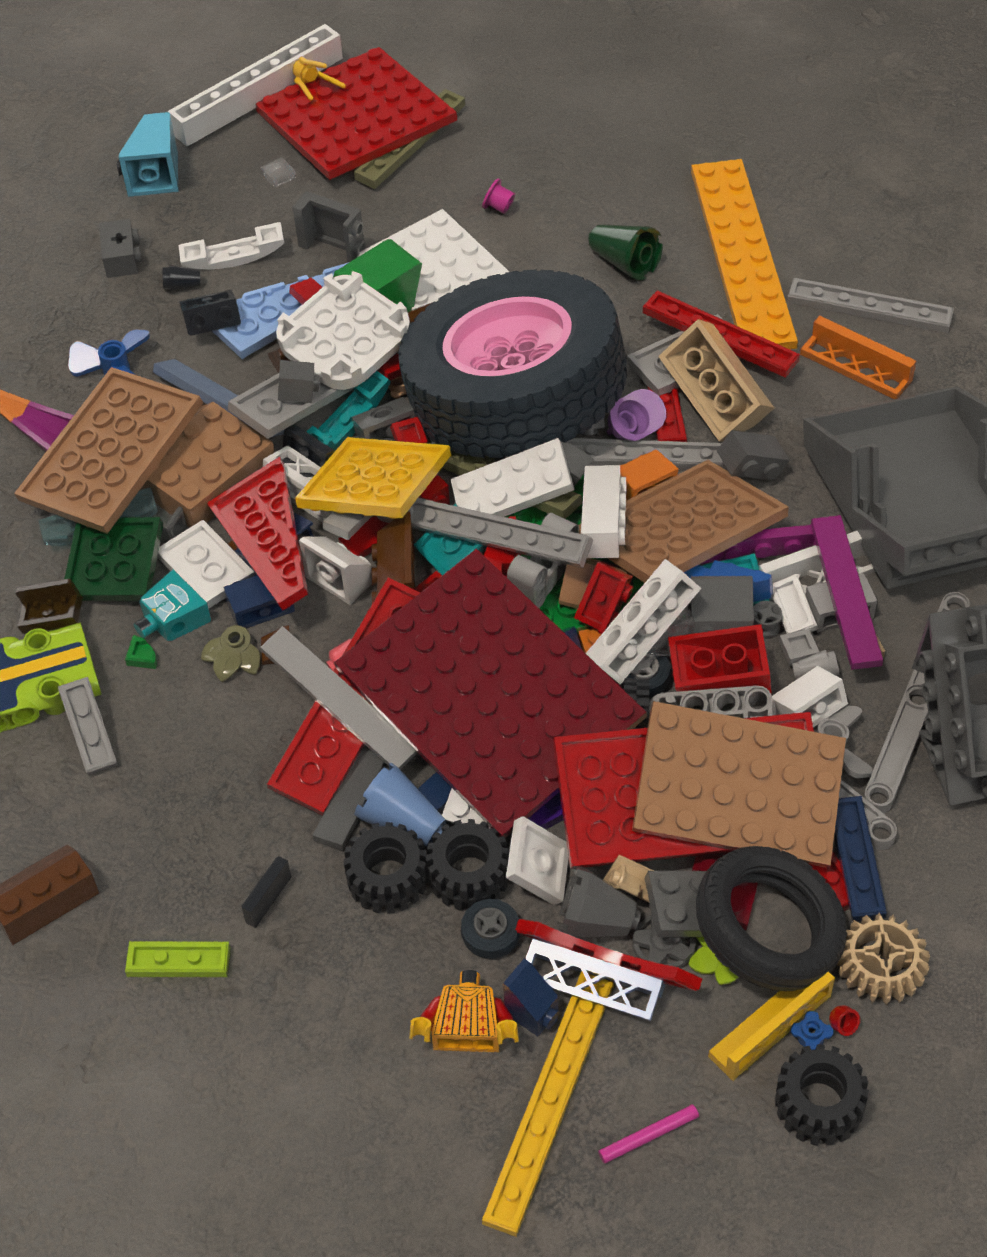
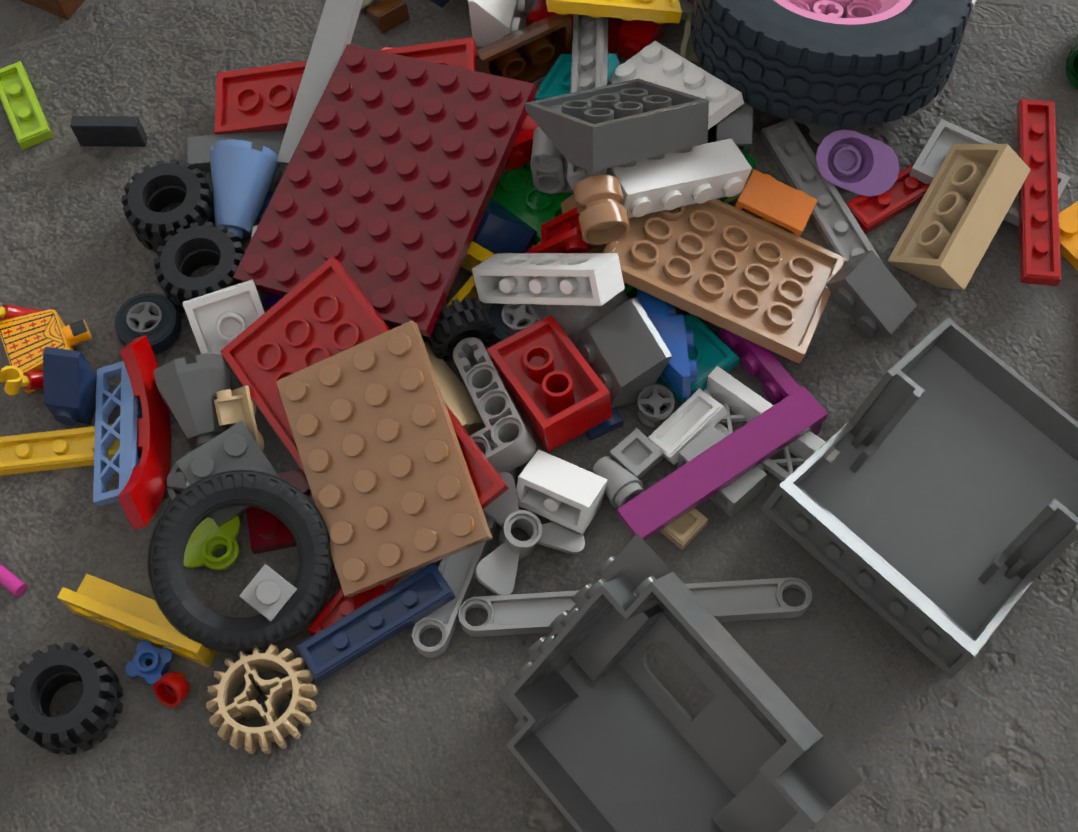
camera: 65 degrees right, 10 degrees up
(553, 508) = (621, 123): none -> dark grey slope
(621, 553) = (600, 209): none -> medium nougat wheel
(814, 902) = (267, 592): none -> light grey plate

